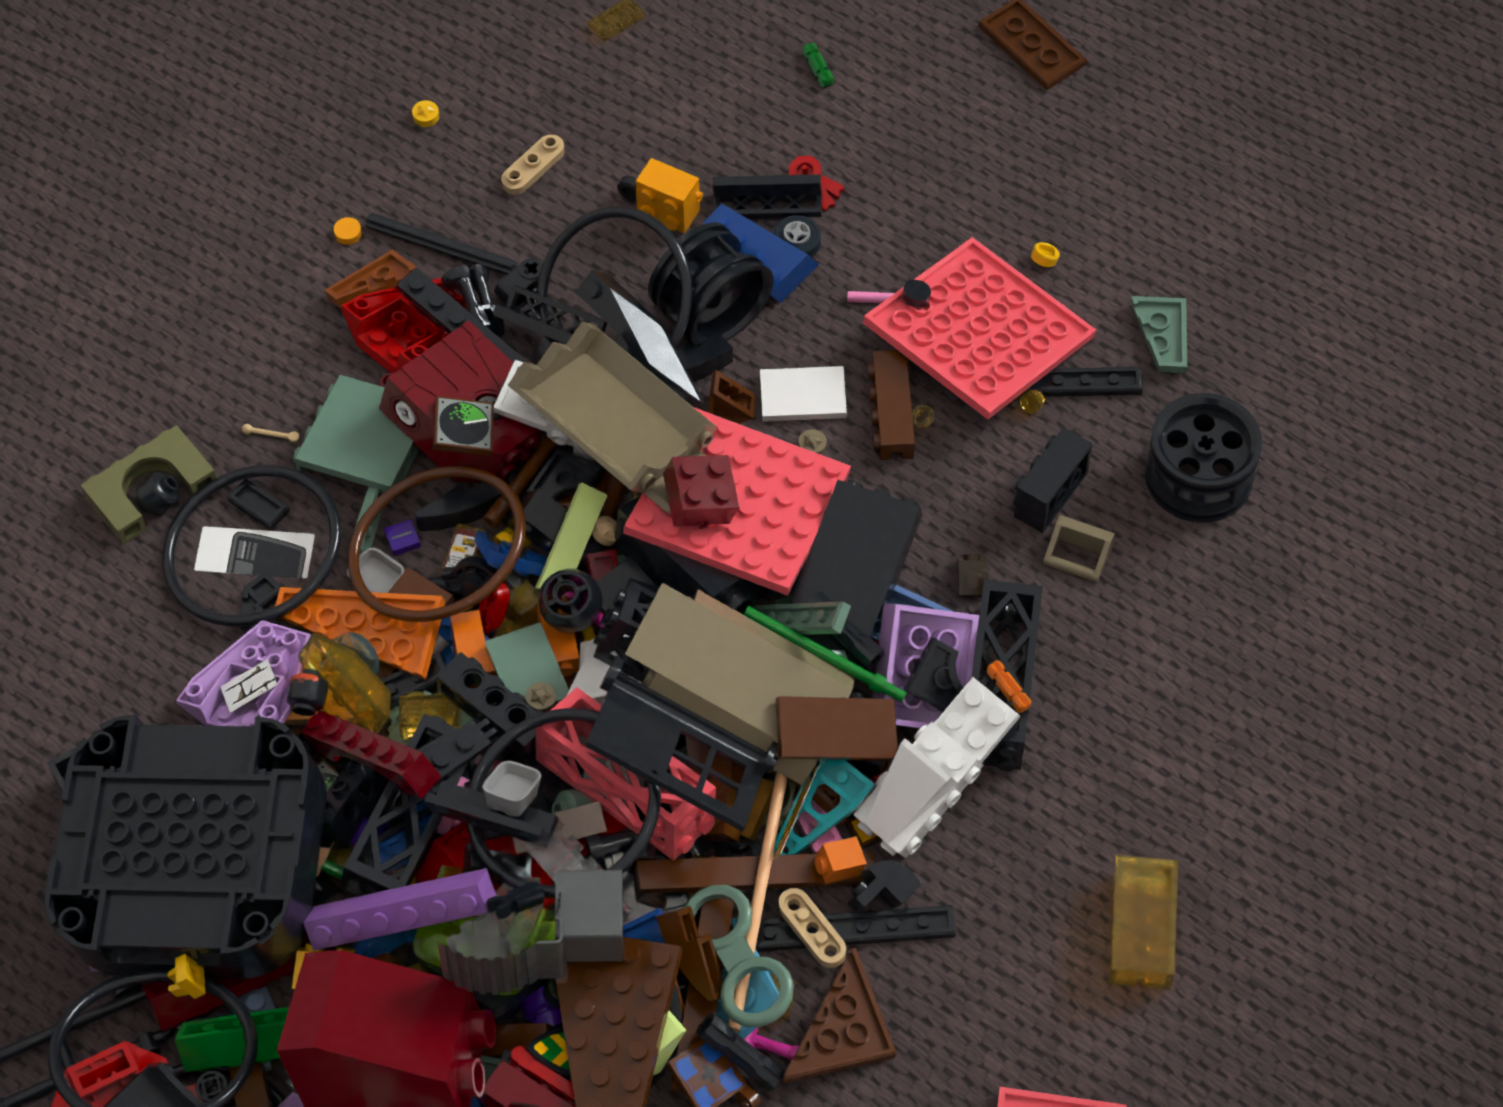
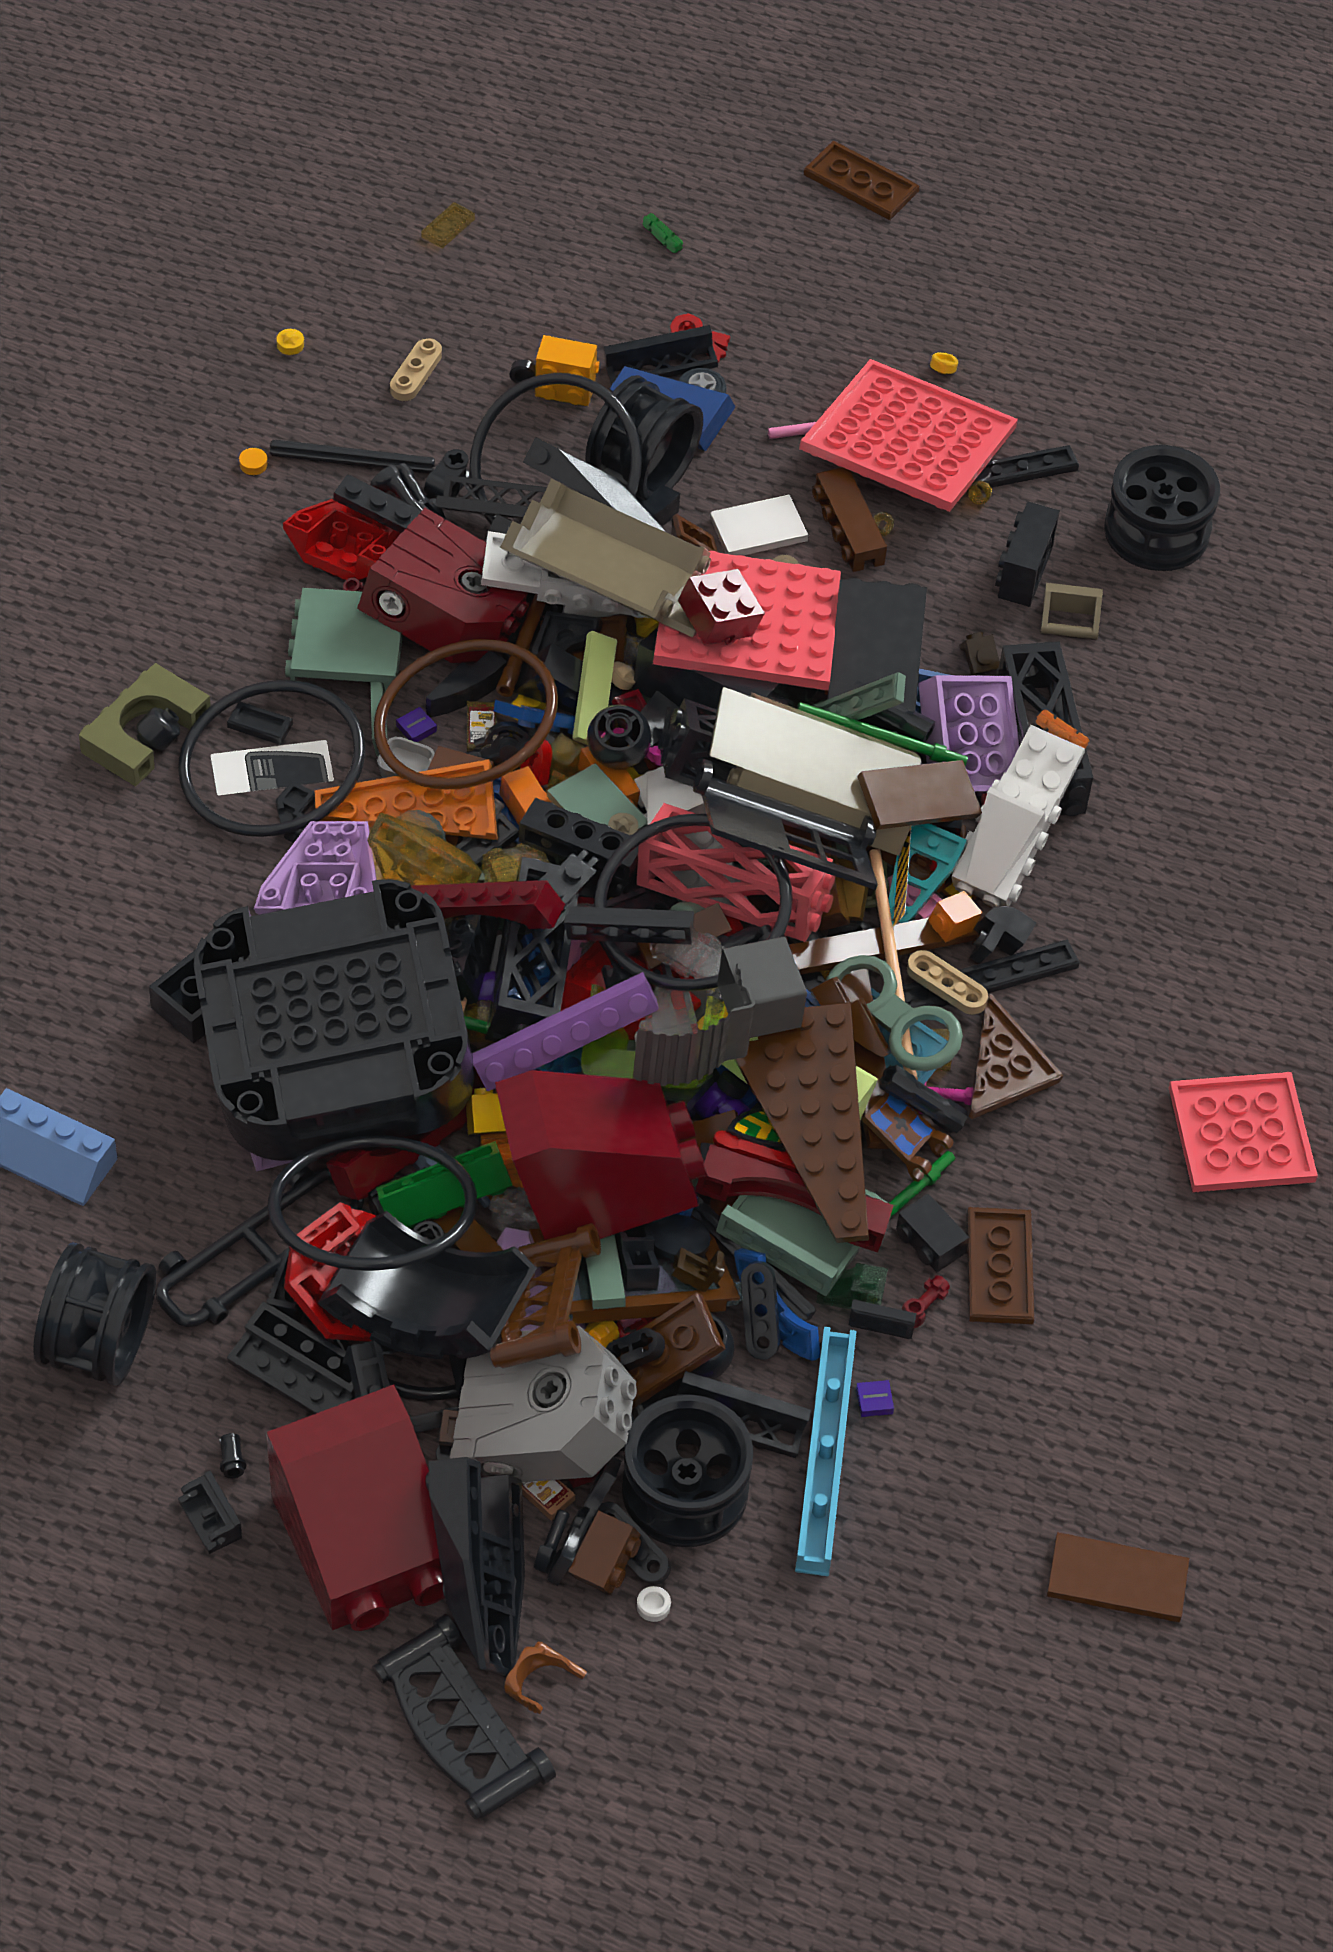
camera: 20 degrees left, 5 degrees down
(188, 978) = (379, 1134): yellow tile -> none
(248, 685) = (324, 878): white sticker -> none
(293, 437) = (270, 657): tan hinge -> none
(307, 692) = (390, 864): black head -> none
(376, 276) = (305, 491): dark orange wing -> none
(463, 426) = (458, 600): tile -> none
(511, 787) = (643, 894): light grey piece -> none
(516, 900) = (684, 992): black bar -> none
(916, 293) = (842, 412): black tile -> none
(935, 675) = (987, 739): black tile -> none
(1143, 922) = (1250, 914): clear yellow piece -> none
(1164, 330) = (1080, 409): sand green wing -> none

